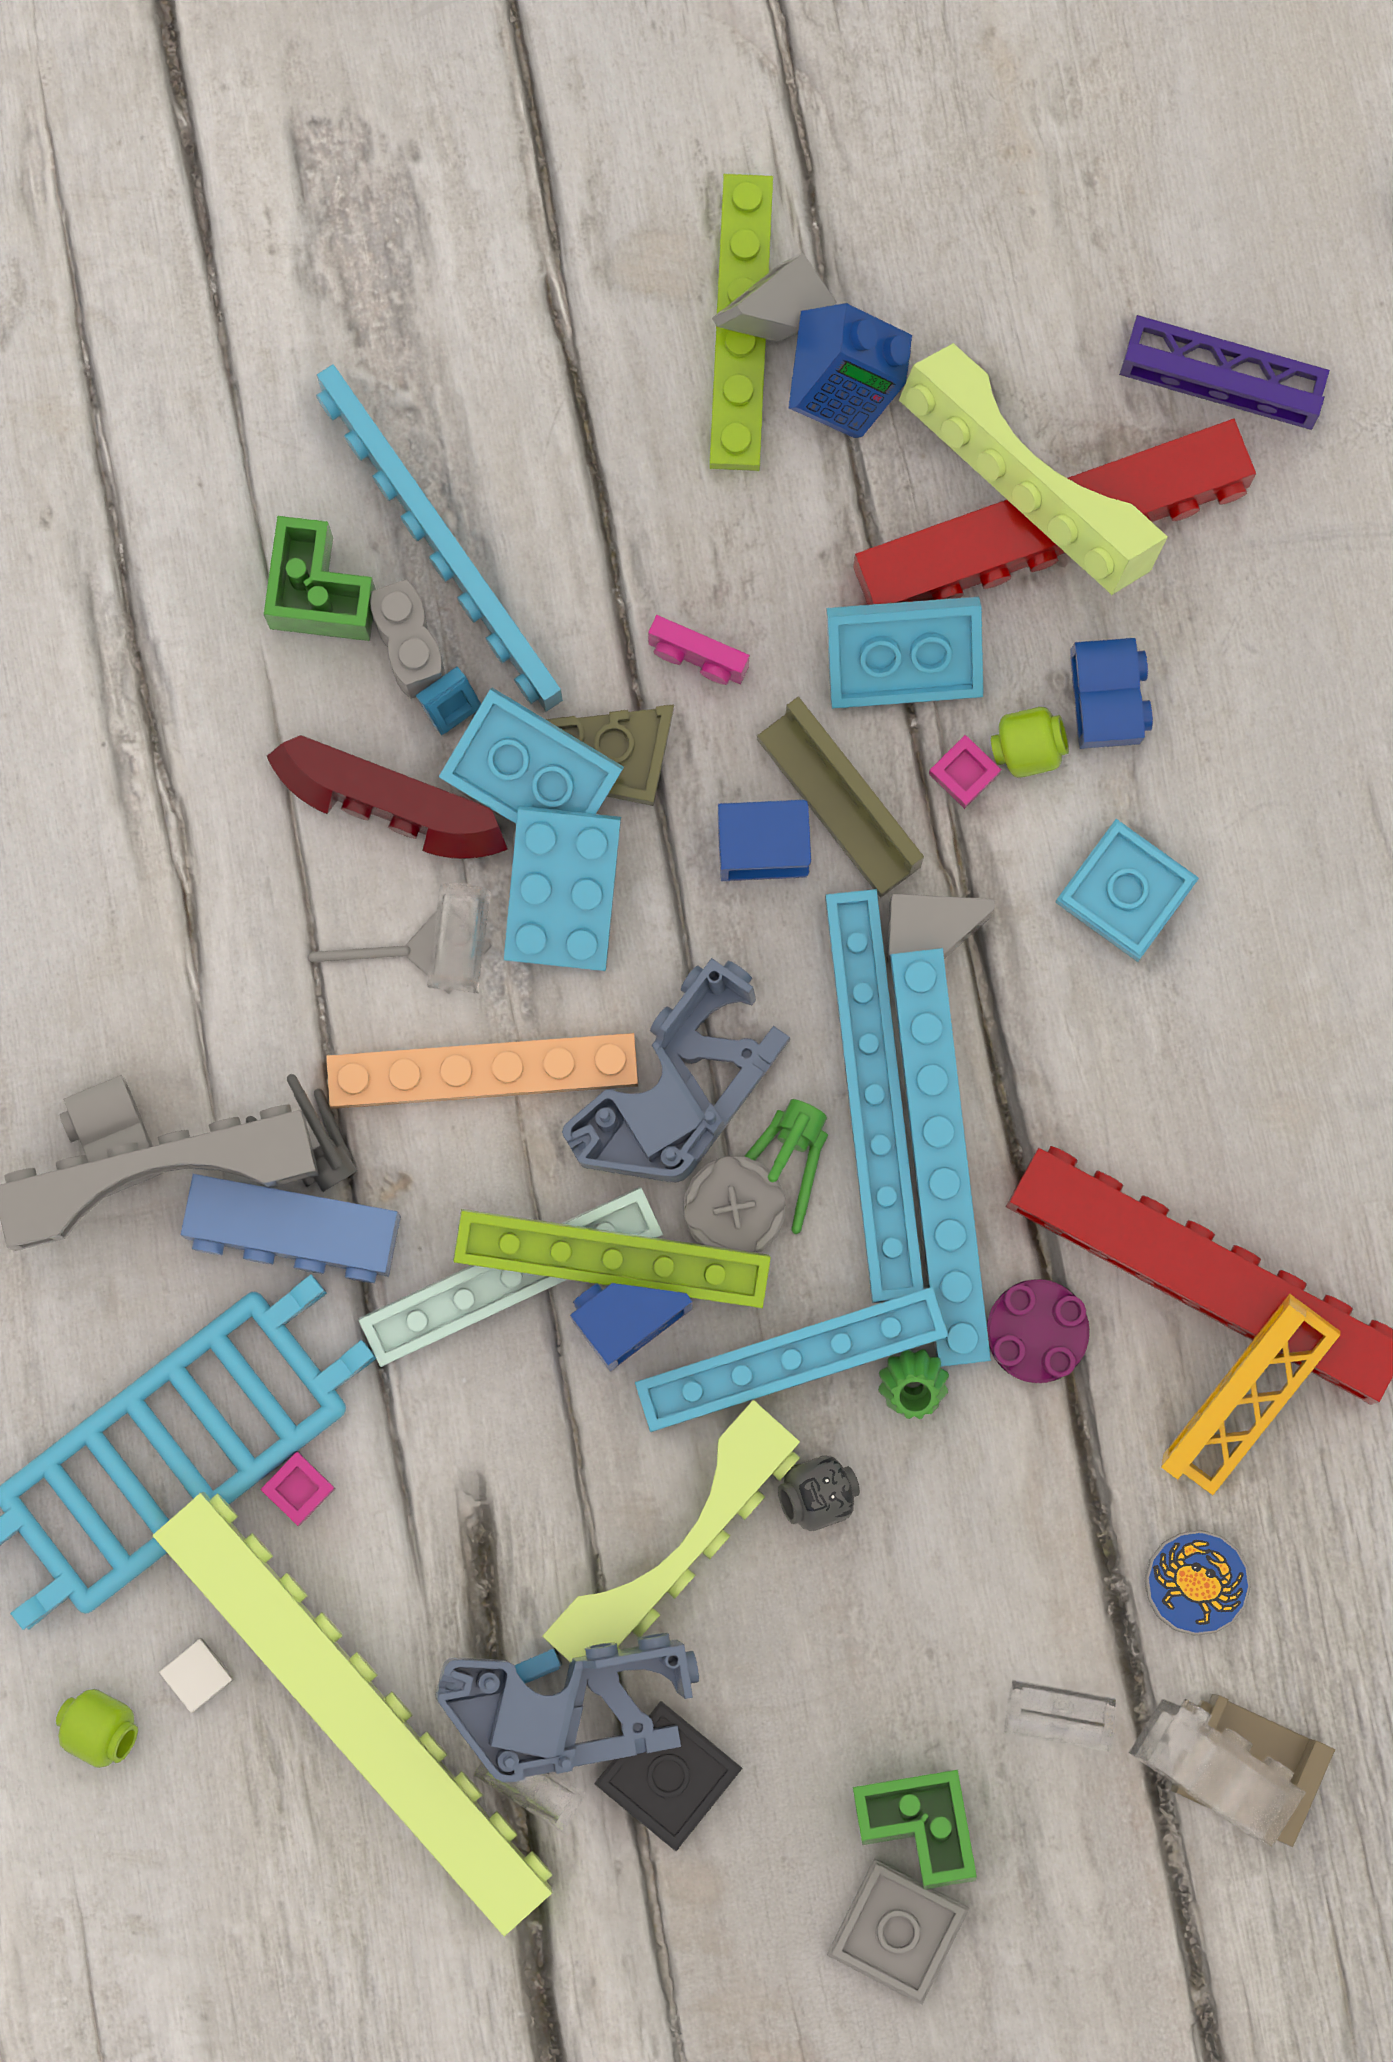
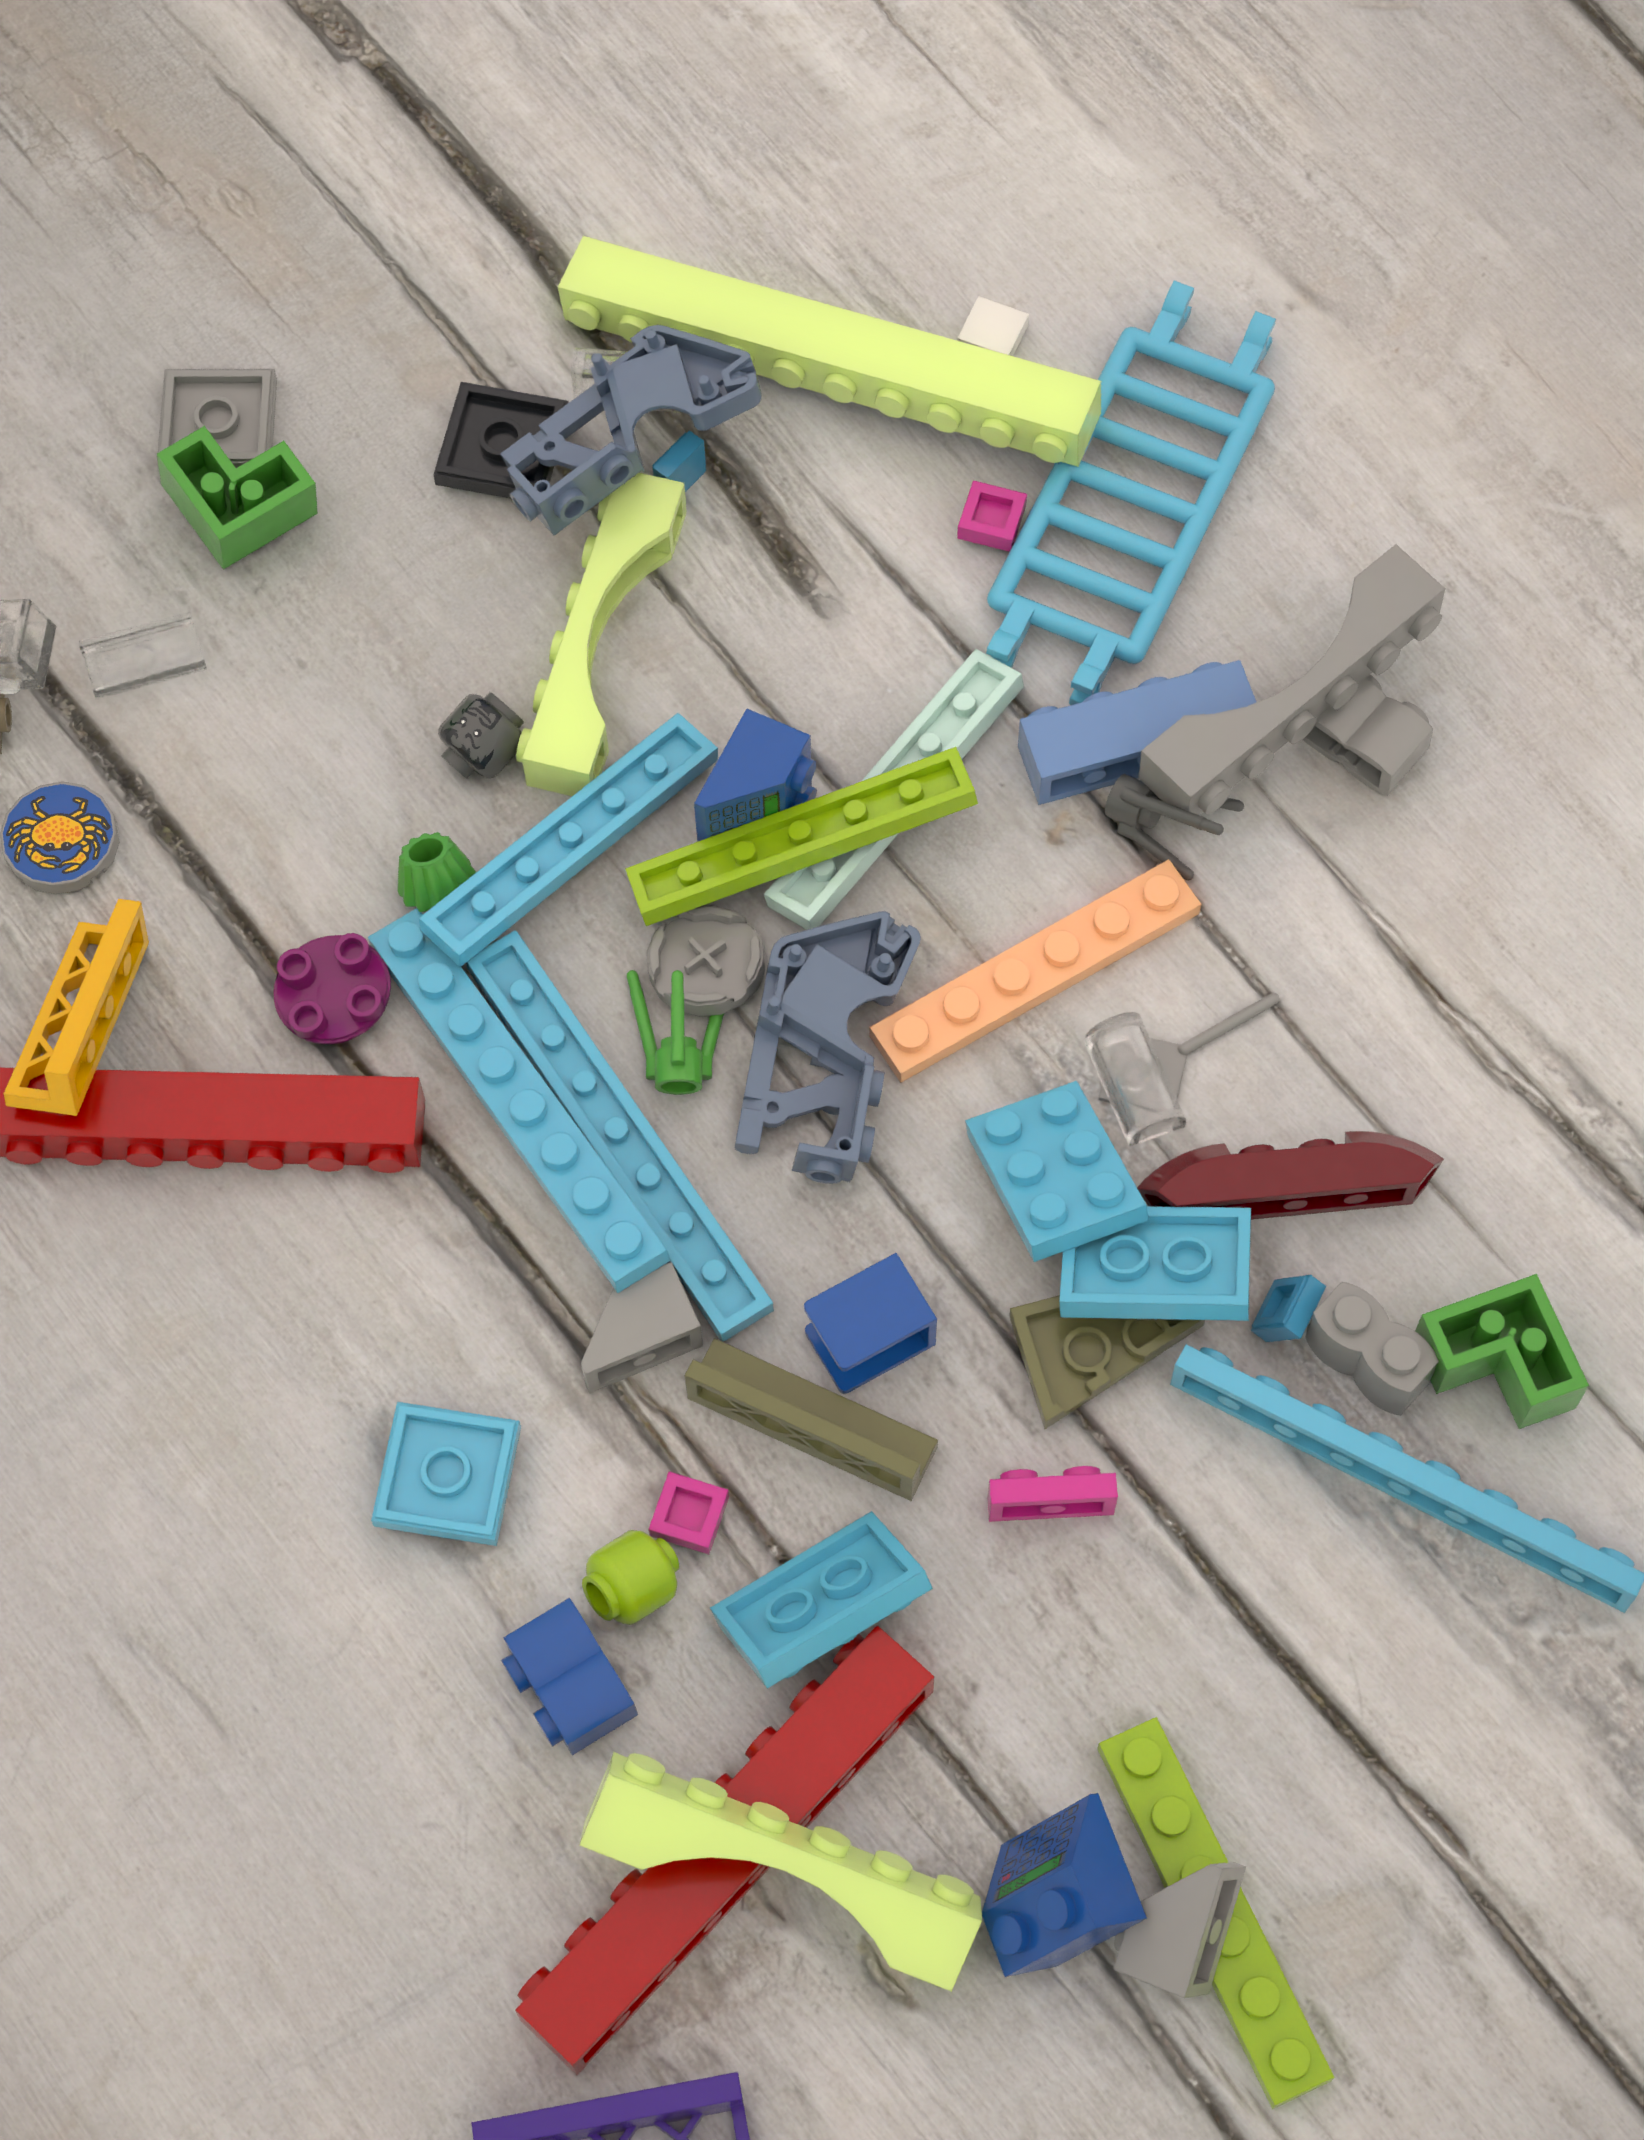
camera: 155 degrees right, 15 degrees down
(96, 1728) = (1056, 243): lime head -> none

